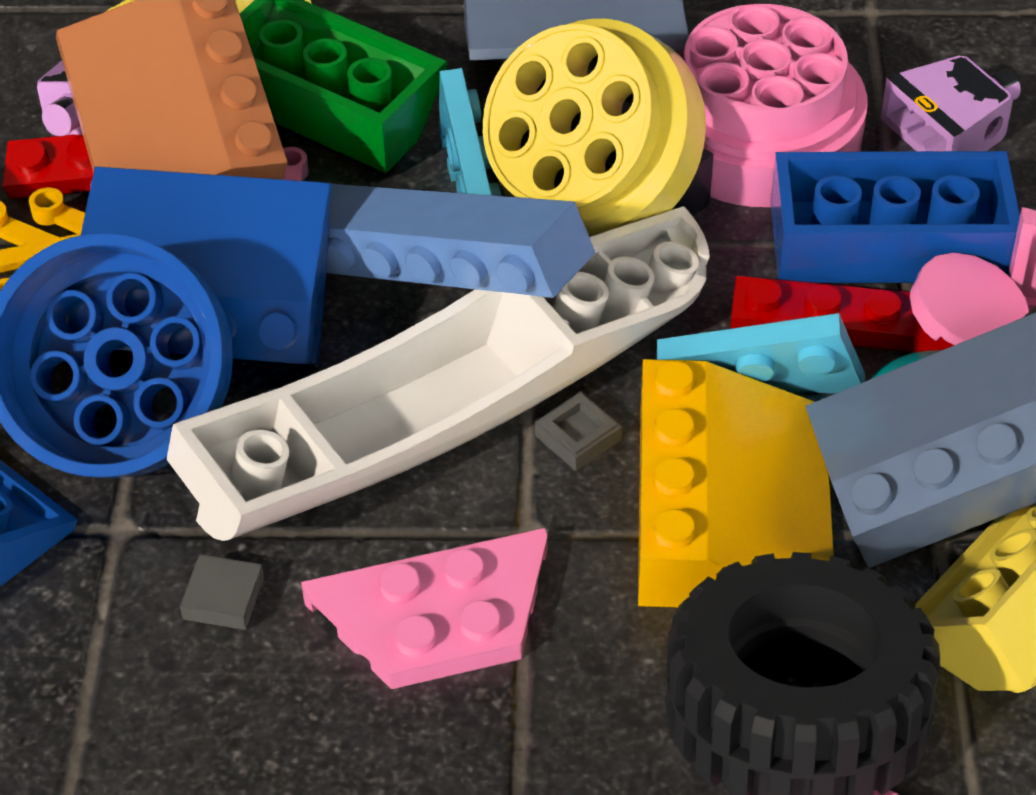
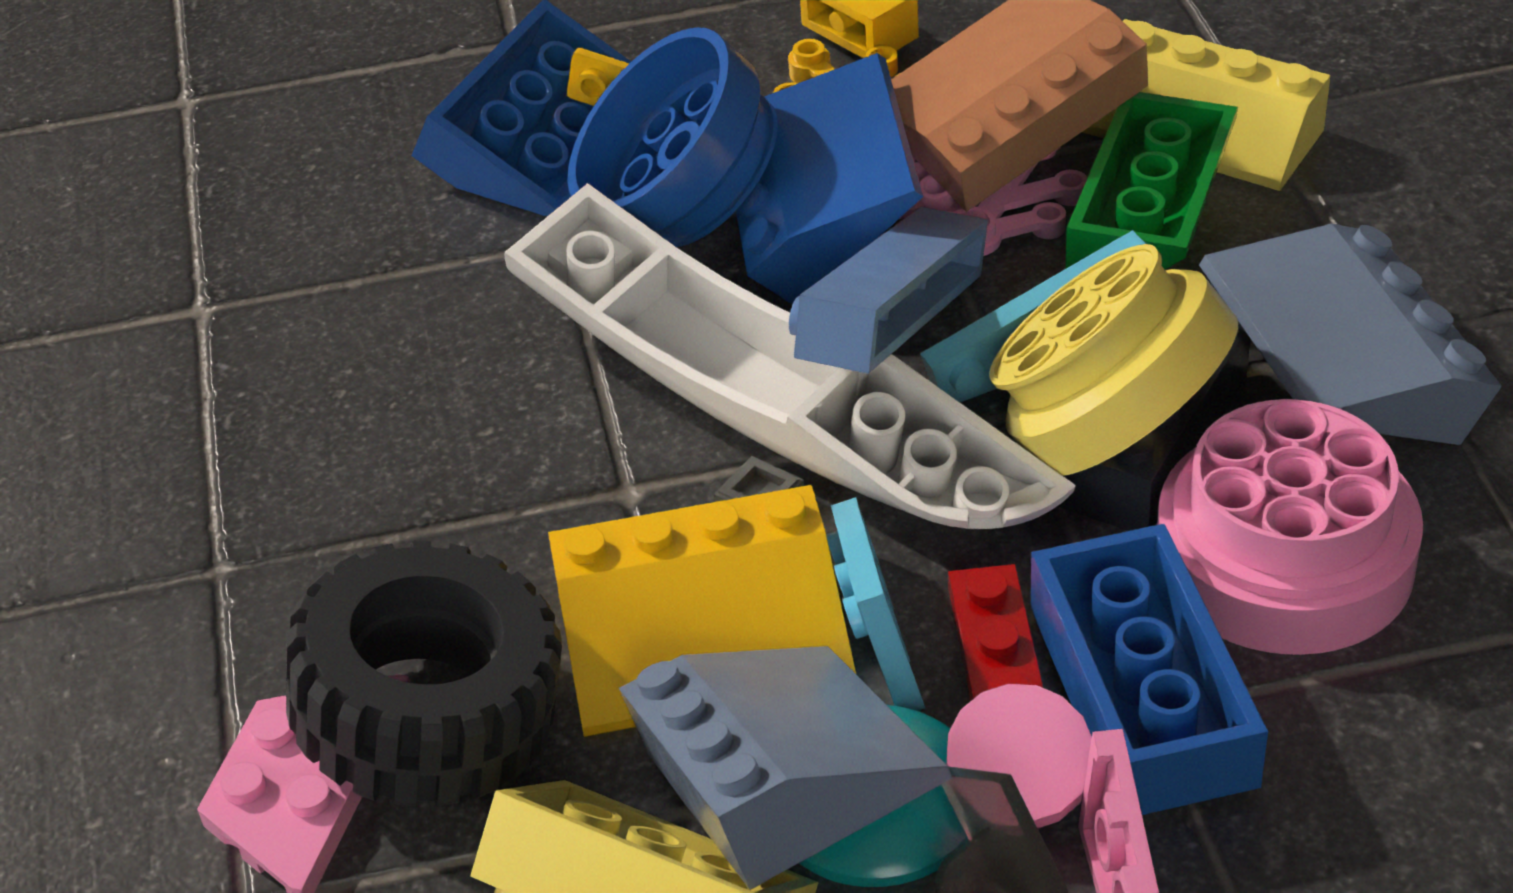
camera: 80 degrees right, 5 degrees down
(222, 592) = (502, 313): dark grey tile -> none
(436, 609) = (515, 448): bright pink wing -> none
(950, 105) = (1390, 711): lavender torso -> none

